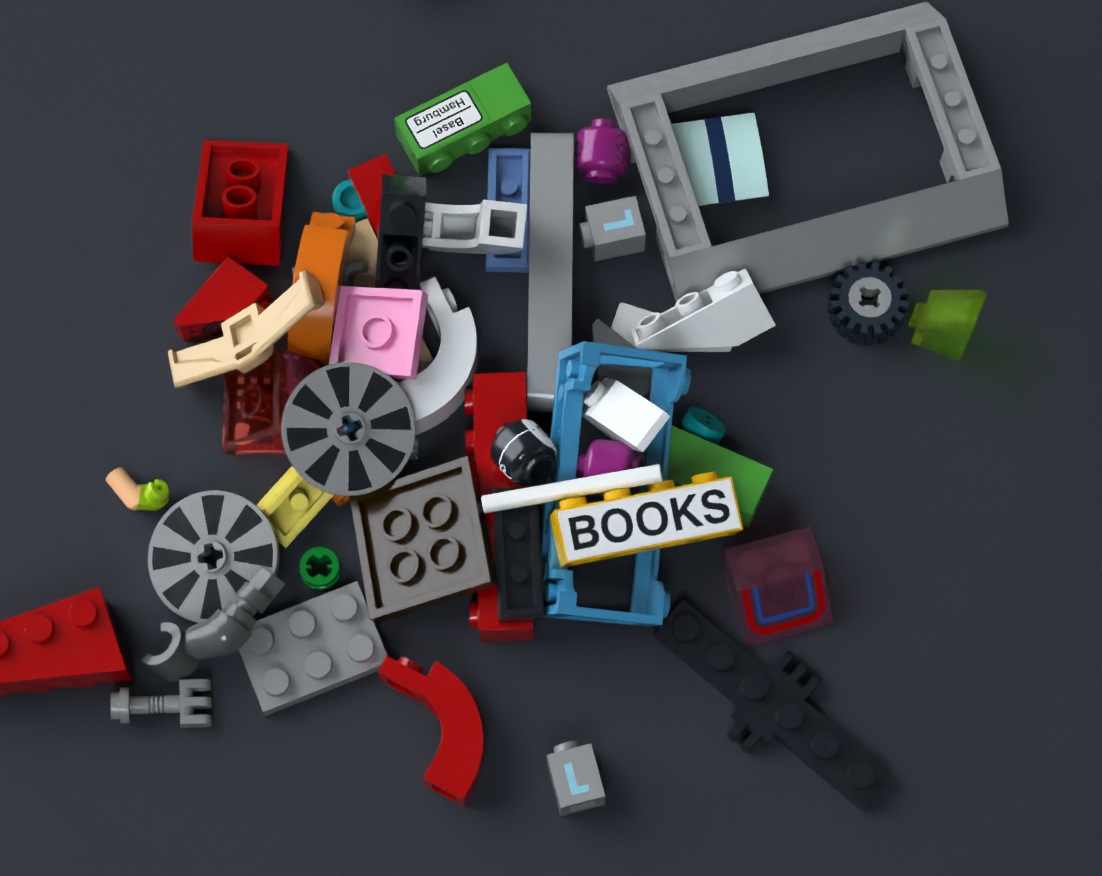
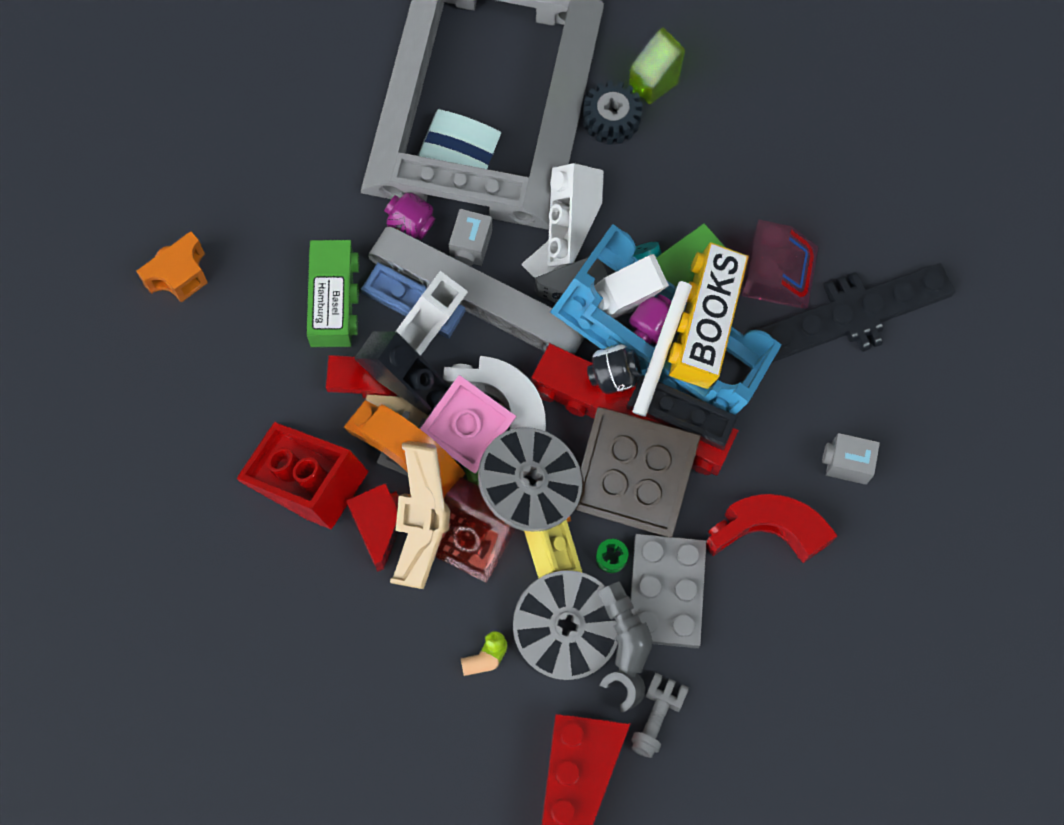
camera: 65 degrees left, 0 degrees up
(347, 202) = (345, 403): teal tile -> none

